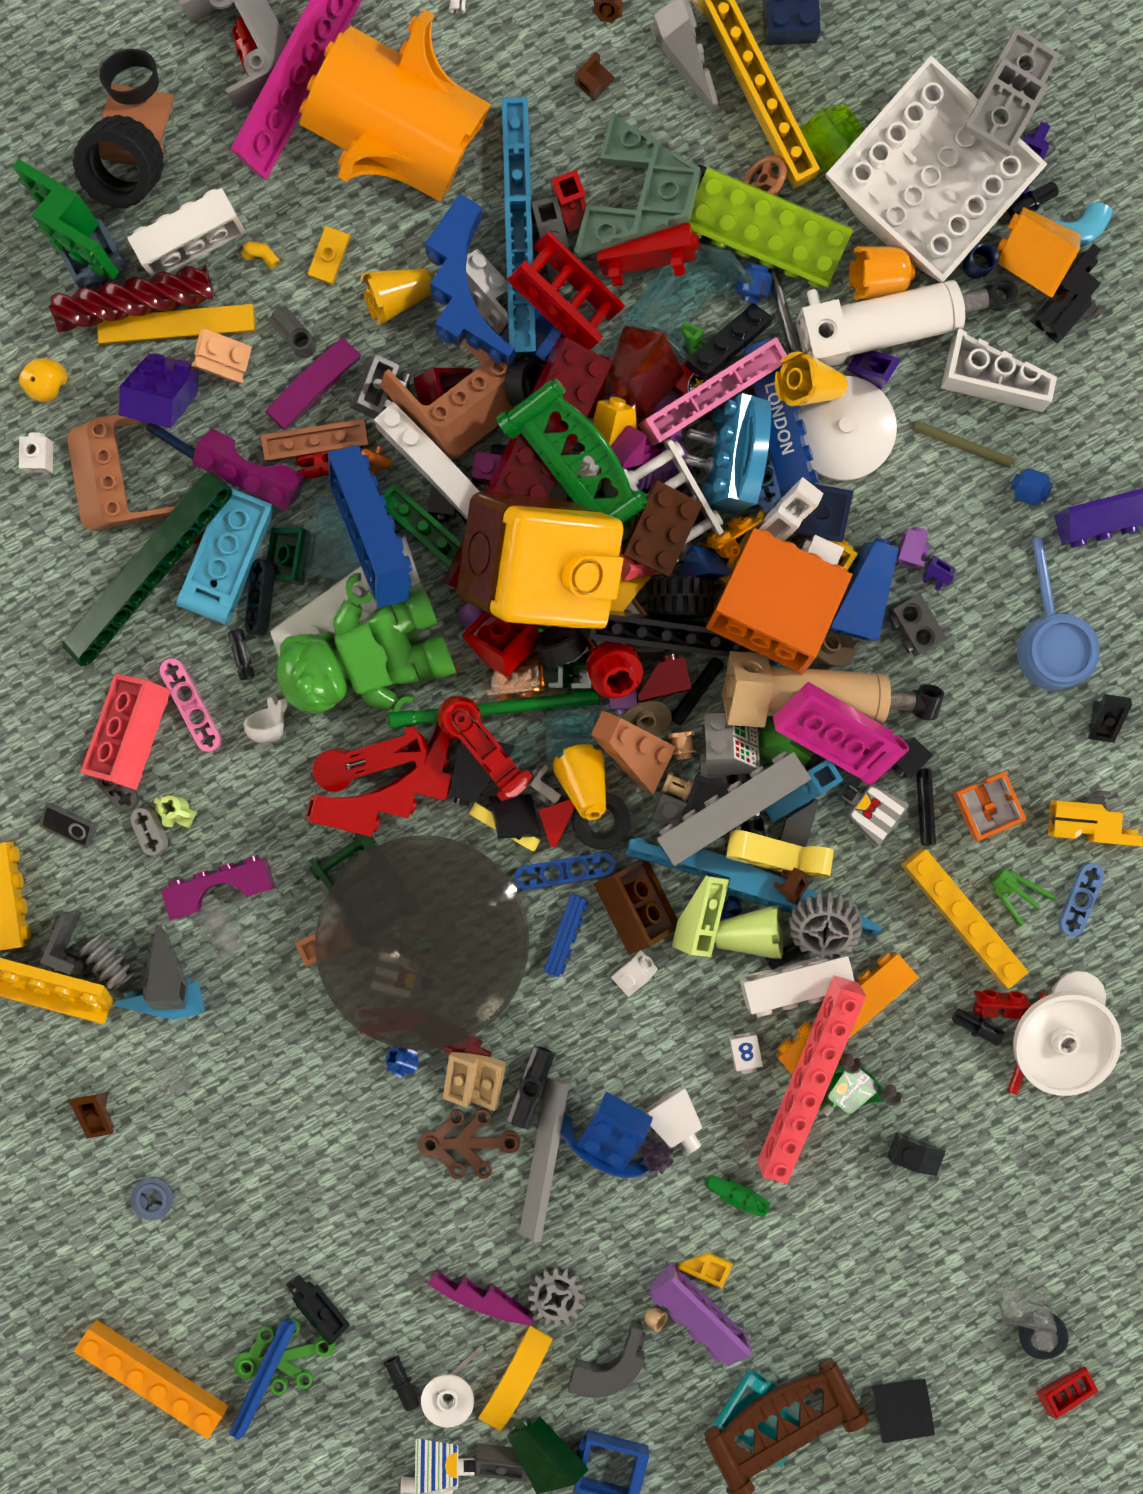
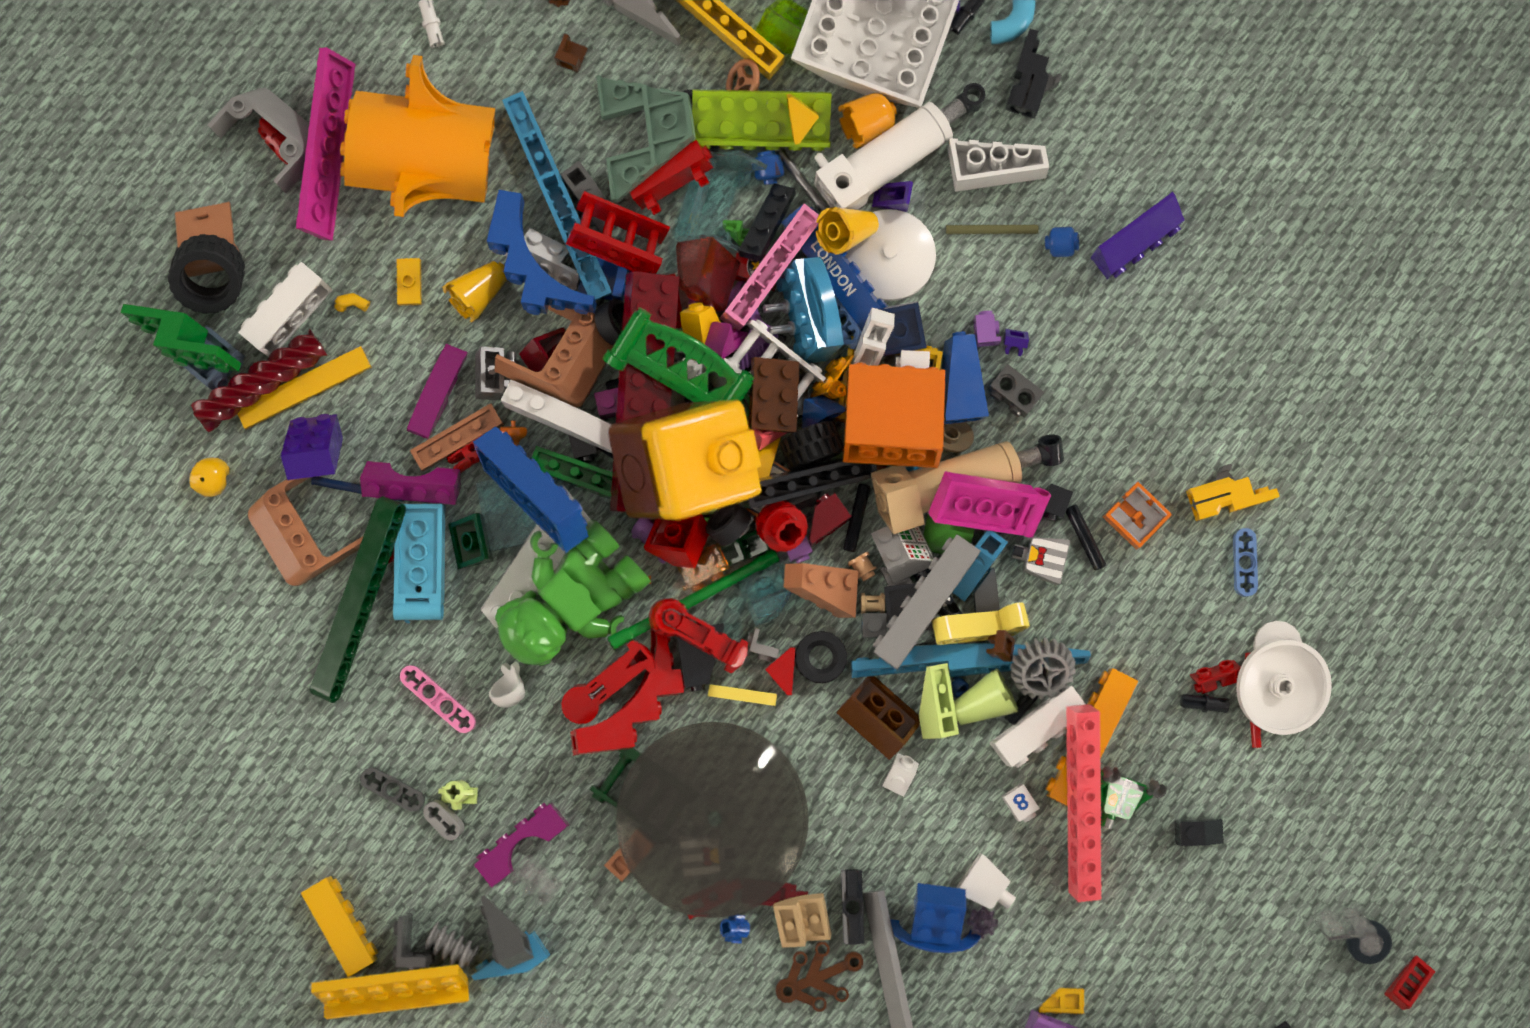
camera: 25 degrees left, 5 degrees down
(36, 453) = (226, 540): white brick -> none
(68, 825) = (372, 842): slope -> none
(122, 60) = (179, 188): black tyre -> none
(125, 731) = (391, 742): coral slope -> none
(221, 356) = (352, 398): light nougat plate -> none
(241, 654) = (464, 639): black axle -> none
(262, 583) = (465, 598): black beam -> none
(292, 331) = (403, 355): dark grey piece -> none
(514, 817) = (747, 683): black piece -> none
(564, 870) = (806, 710): blue beam -> none
(566, 935) = (830, 766): blue piece -> none
(570, 198) = (591, 158): red brick -> none
(583, 779) = (792, 627): yellow cone -> none
(650, 716) = (827, 553): dark tan dish -> none
(737, 1195) = (1064, 928): green hinge -> none
(810, 243) = (801, 118): none -> yellow slope
(964, 918) = (1155, 616): yellow brick -> none
(985, 249) = (944, 67): dark blue piece -> none
(1007, 883) = (1177, 573): bright green plant -> none
(1038, 250) = (987, 51): light orange slope -> none
(1056, 648) = (1137, 364): medium blue piece -> none
(1108, 717) = (1204, 403): black slope -> none

